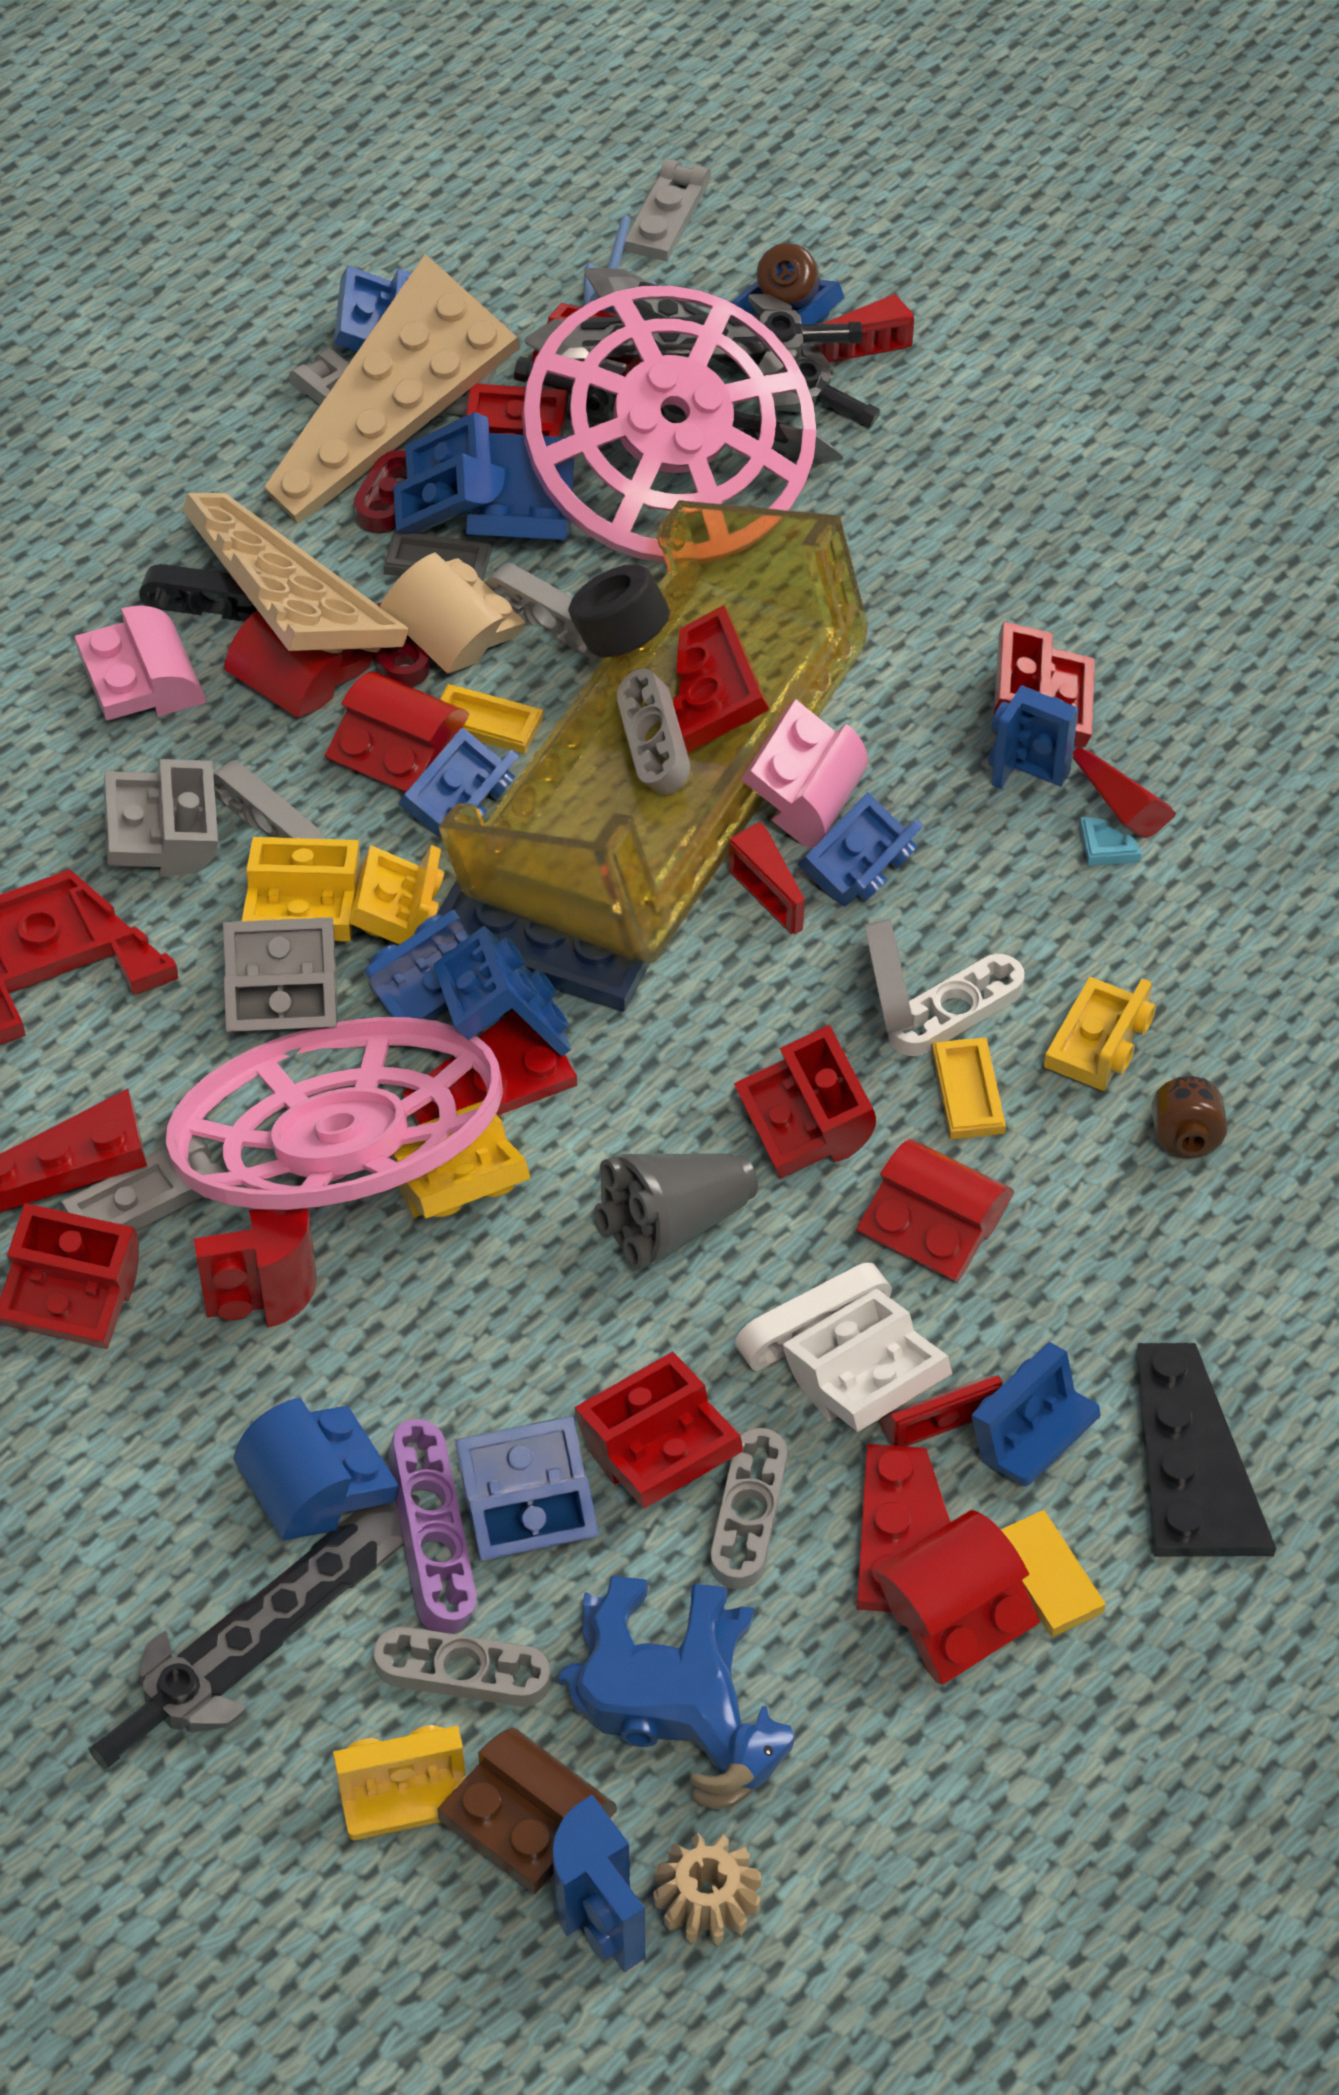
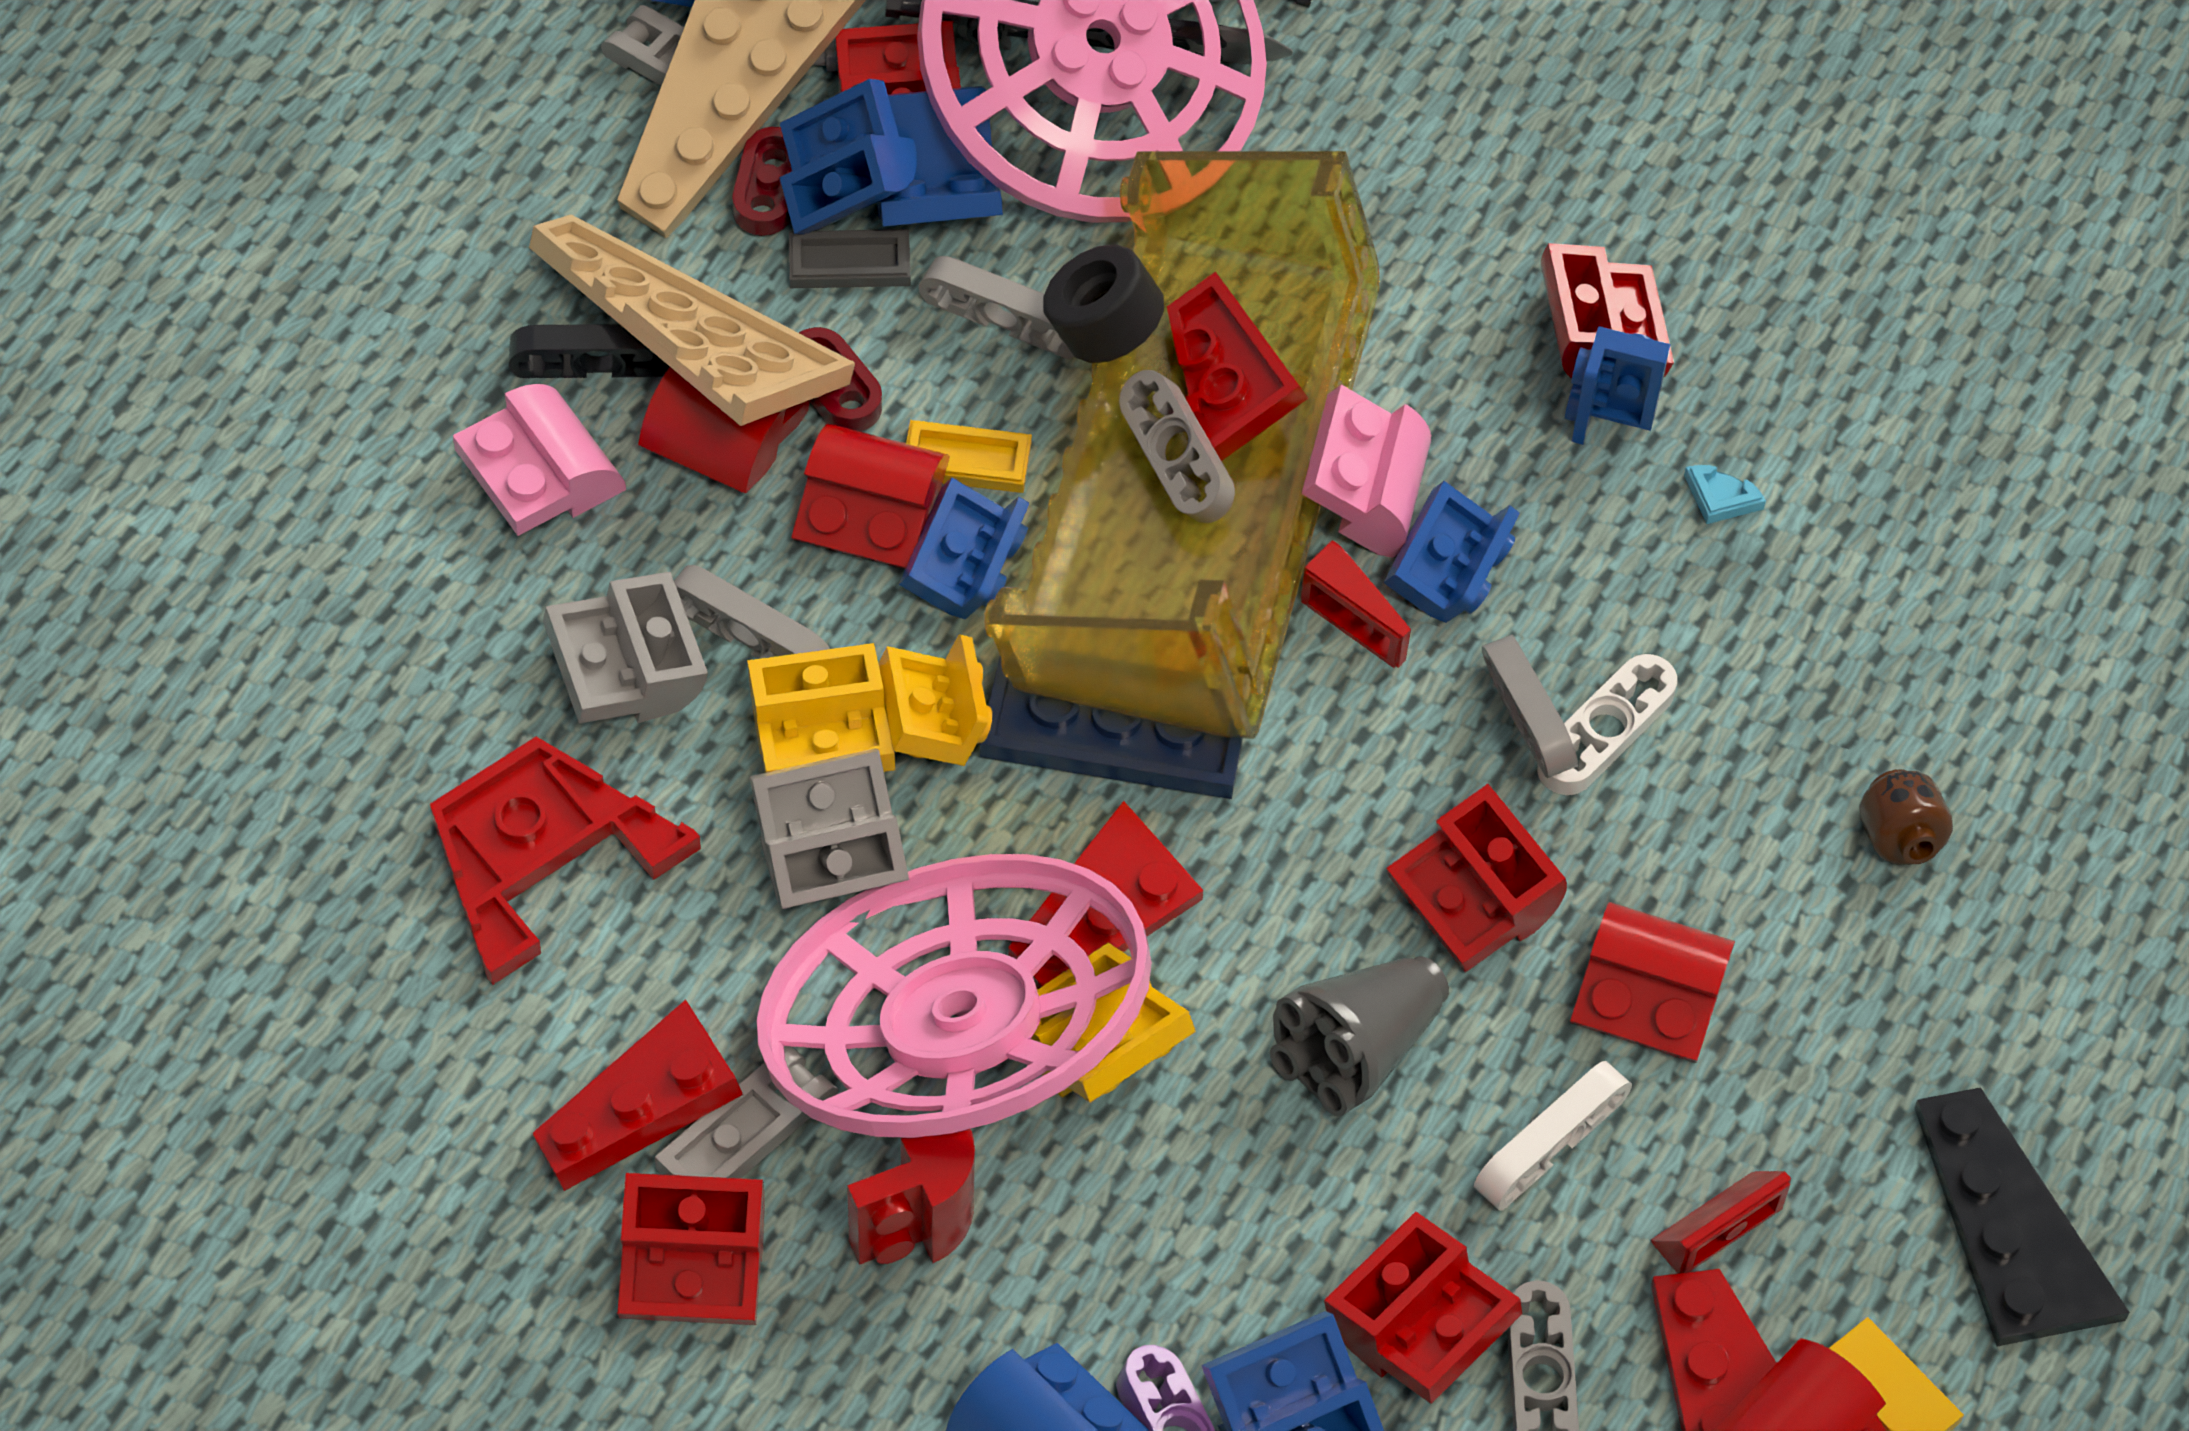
camera: 15 degrees left, 5 degrees up
(405, 973) = (1001, 794): blue bracket -> none
(451, 612) = (894, 330): tan brick -> none
(488, 978) = (1088, 805): blue bracket -> none
(864, 1361) = (1629, 1181): white brick -> none
(968, 1088) = (1647, 824): yellow tile -> none
(1033, 1417) = (1832, 1213): blue bracket -> none
(1100, 1032) = (1778, 731): yellow bracket -> none
(1128, 800) = (1742, 441): red slope -> none

